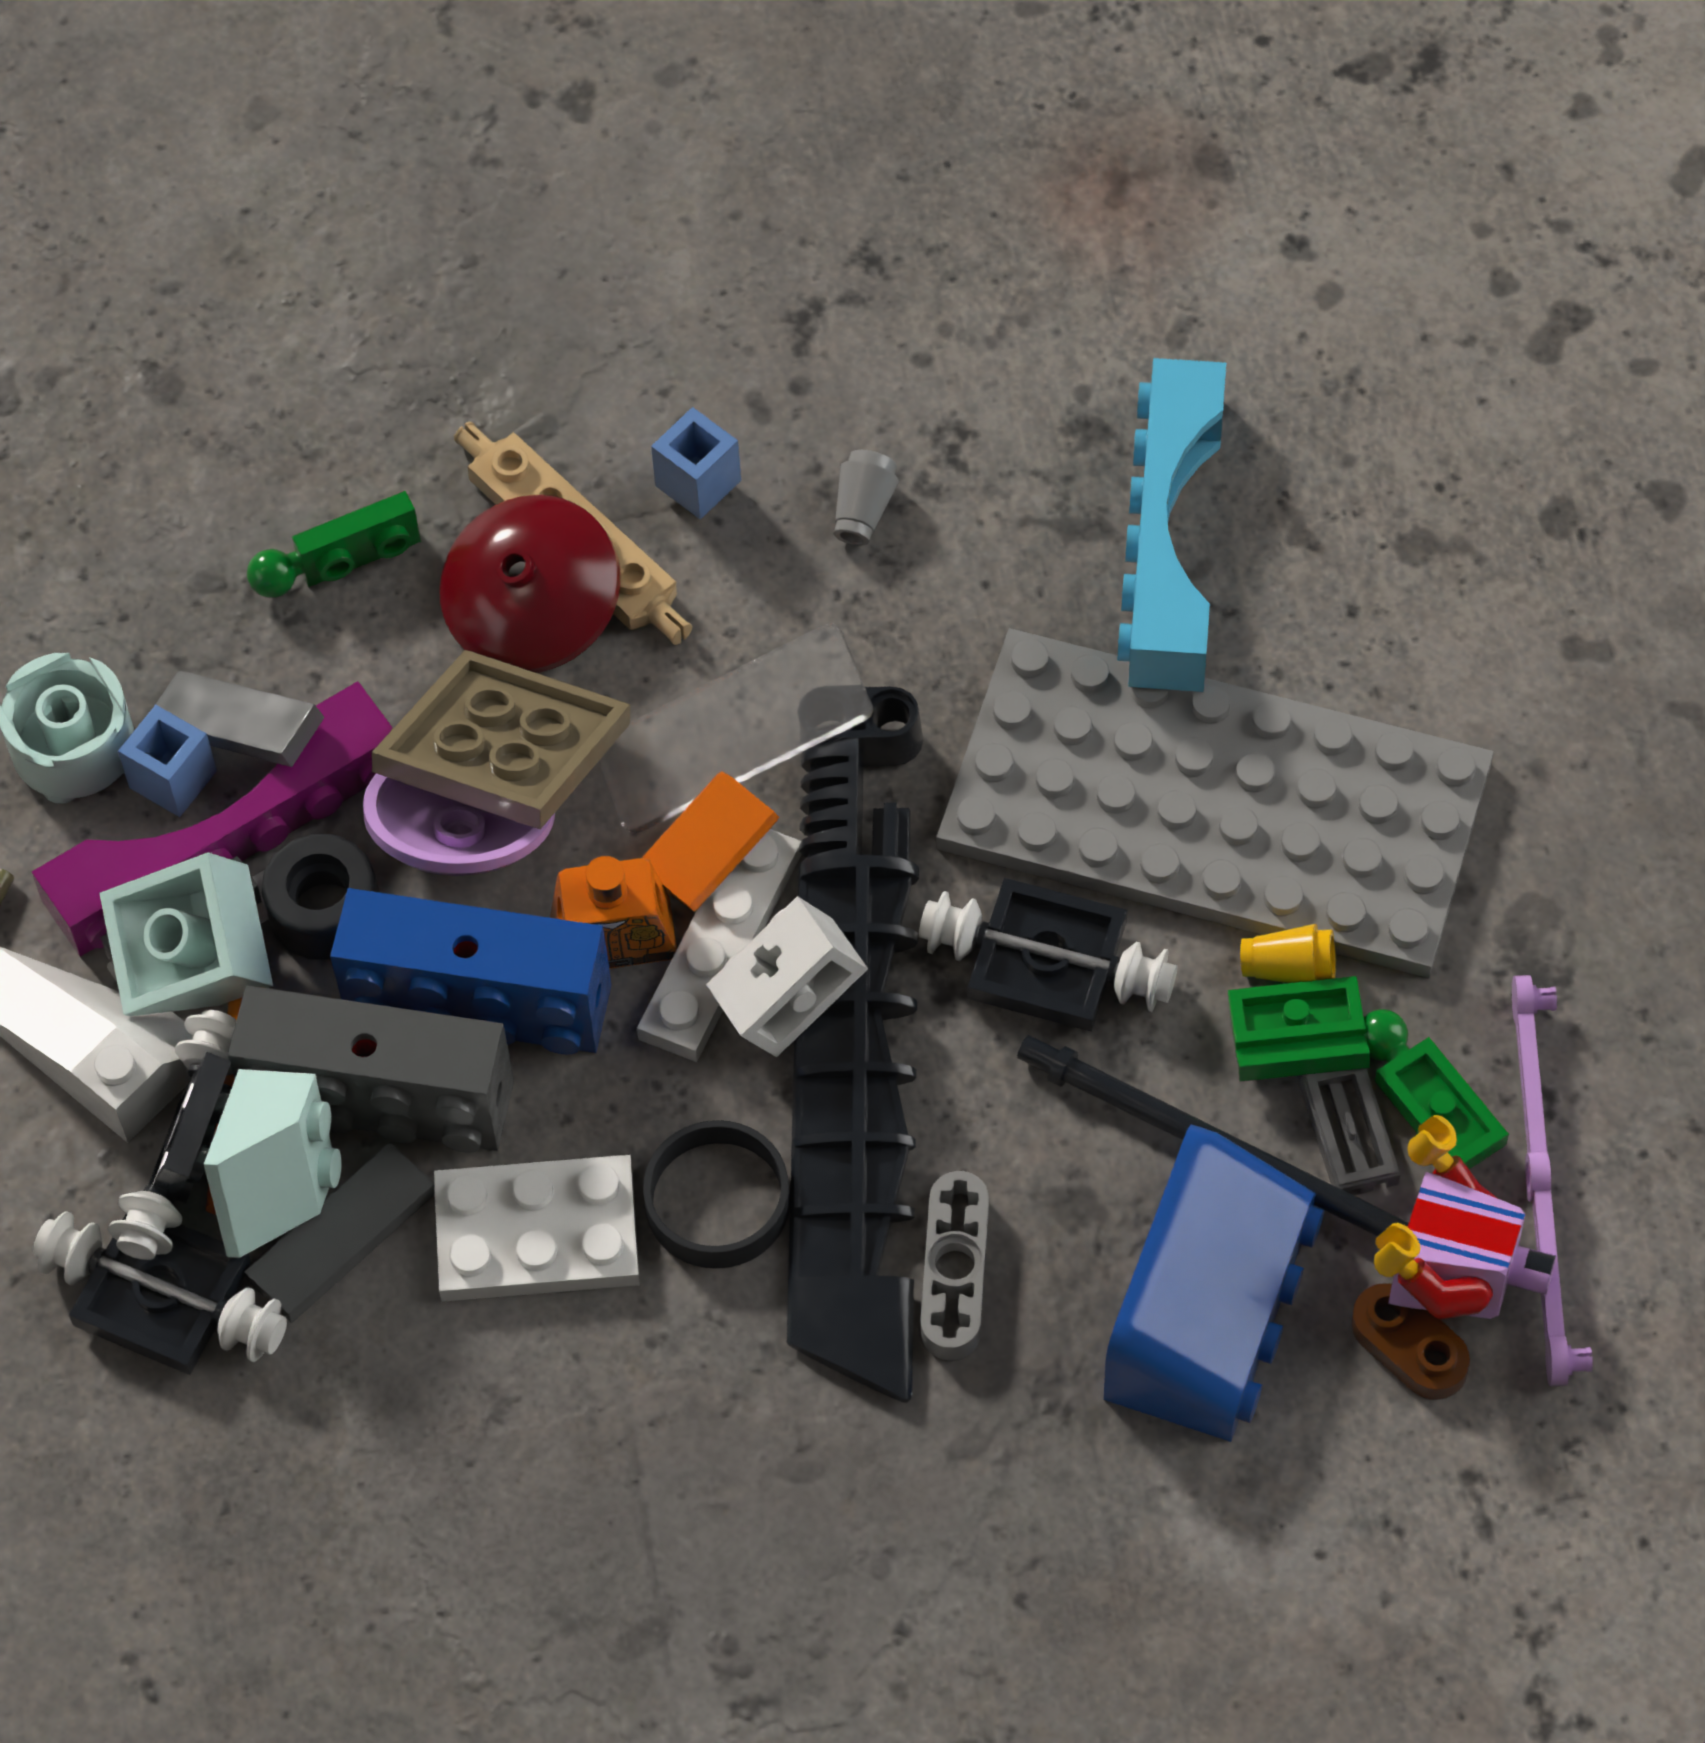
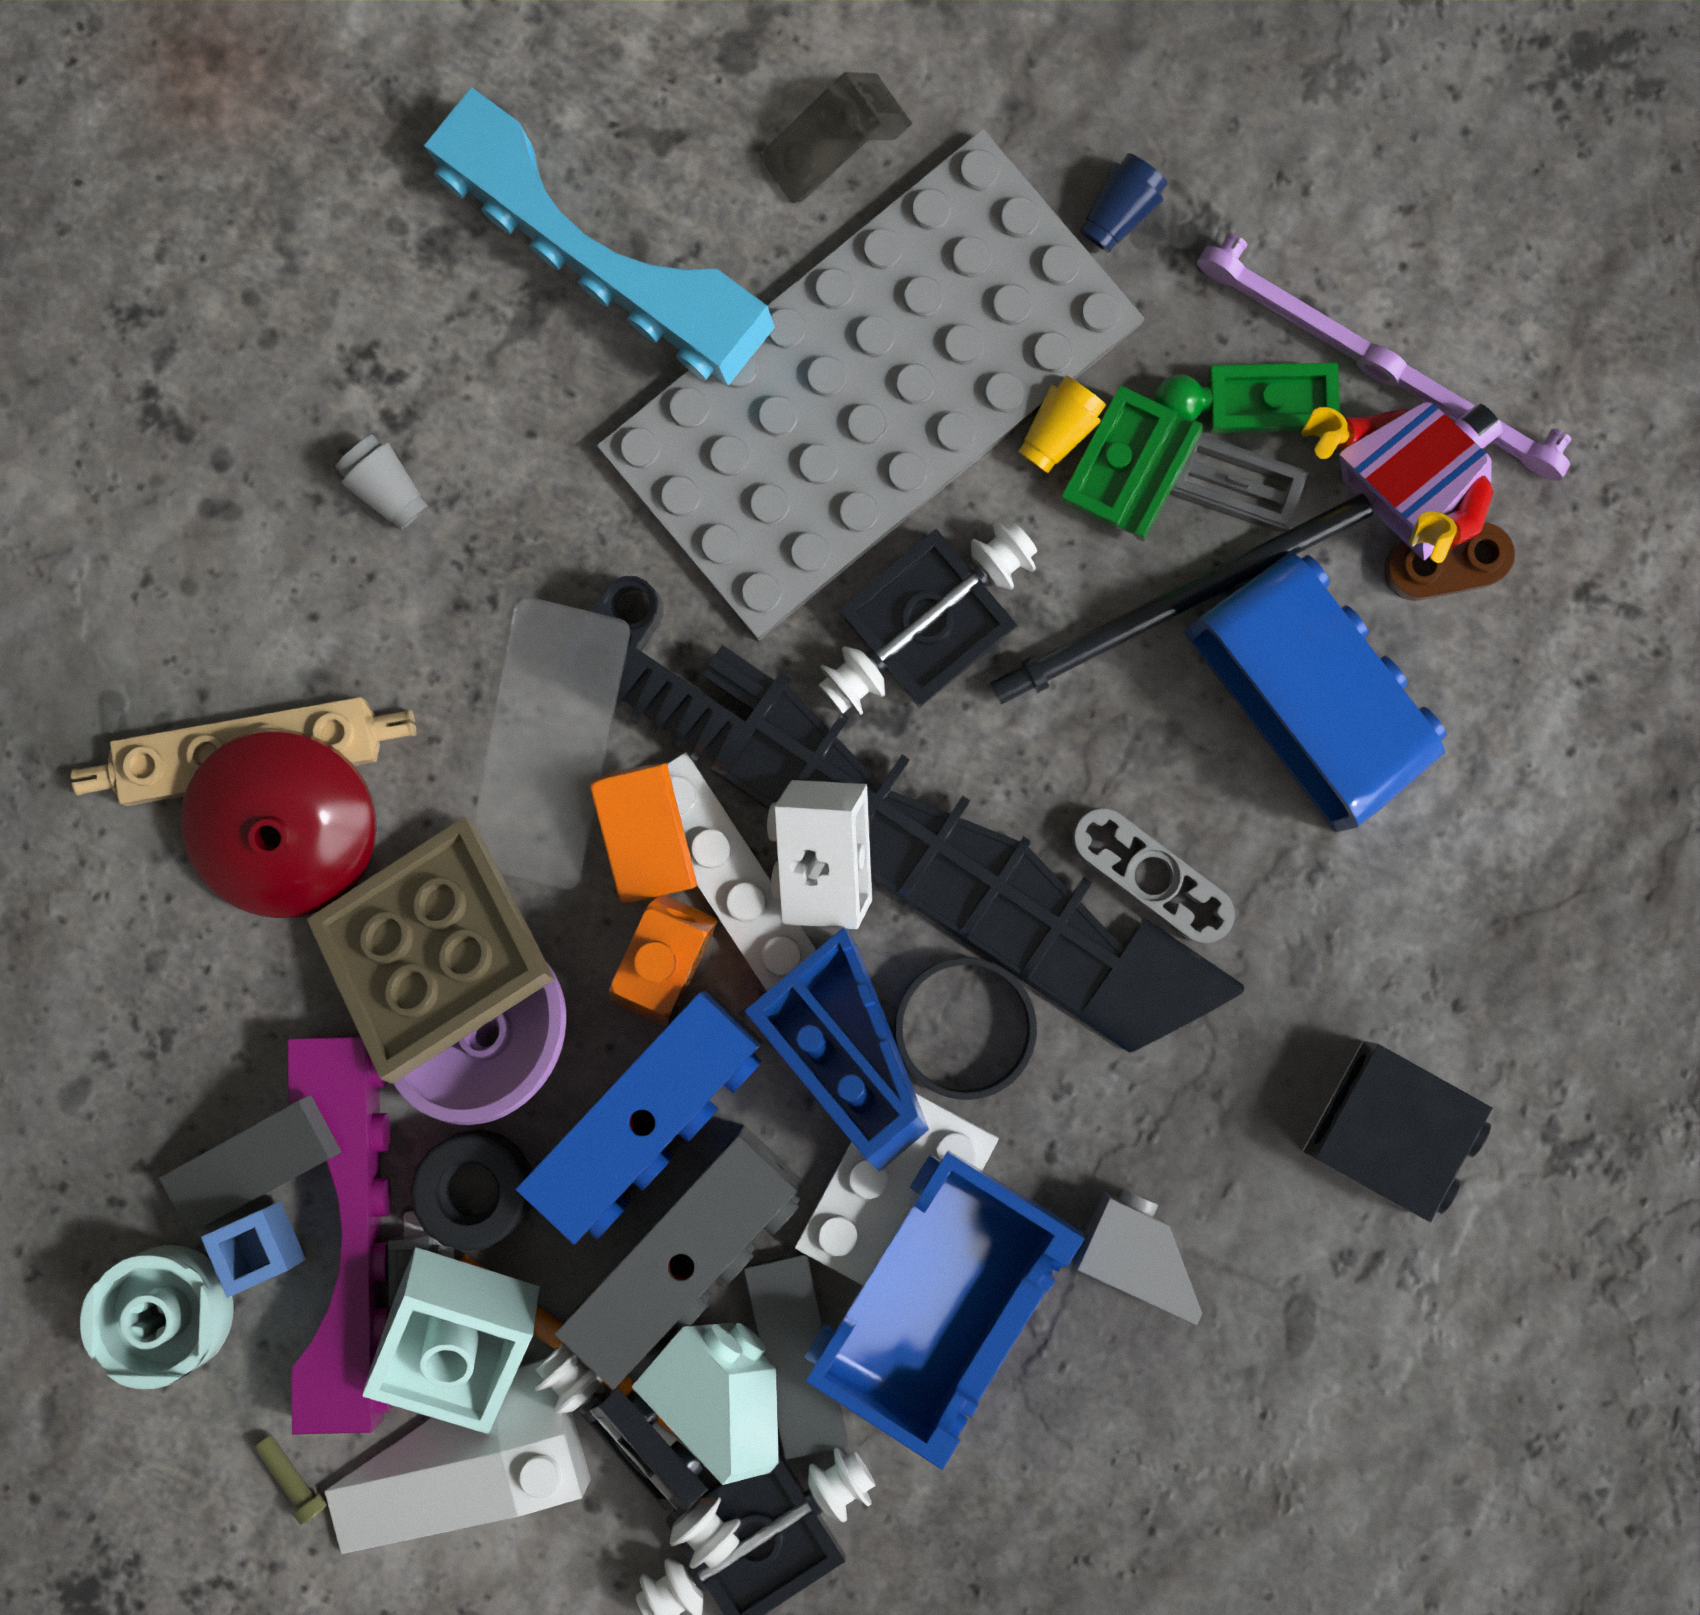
camera: 60 degrees left, 25 degrees up
(337, 547) = (127, 971): green plate -> none
(463, 1304) = (942, 1306): none -> blue windscreen
(612, 1442) = (1137, 1254): none -> light grey slope
(633, 1087) = (842, 1049): none -> blue wedge
(696, 463) = (257, 606): medium blue brick -> none
(868, 1591) = (1399, 1131): none -> black piece
(1412, 635) = (831, 131): none -> clear smoke bracket
(1516, 891) = (1123, 201): none -> dark blue cone

